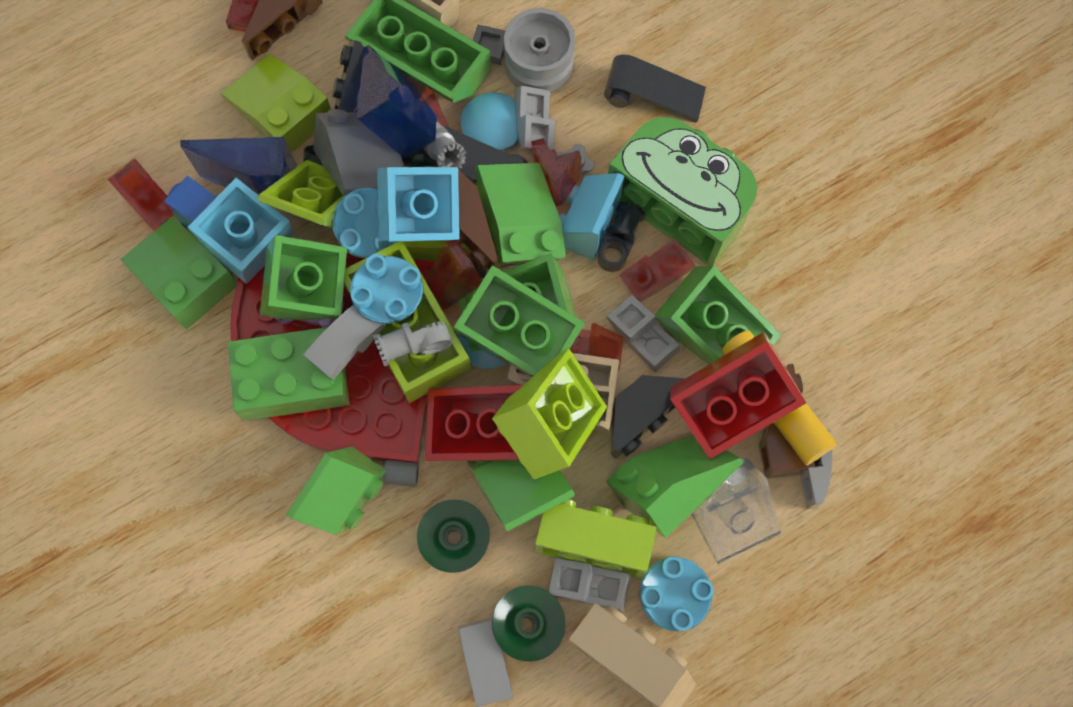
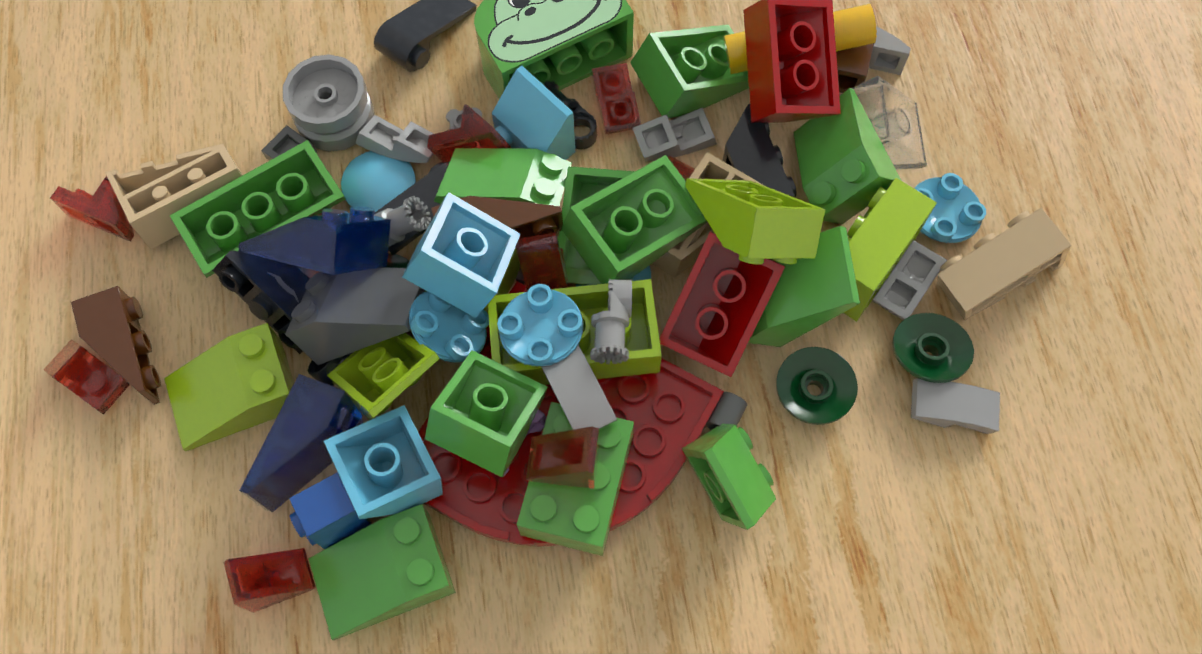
camera: 65 degrees left, 5 degrees down
(282, 354) = (565, 458): none -> clear red slope

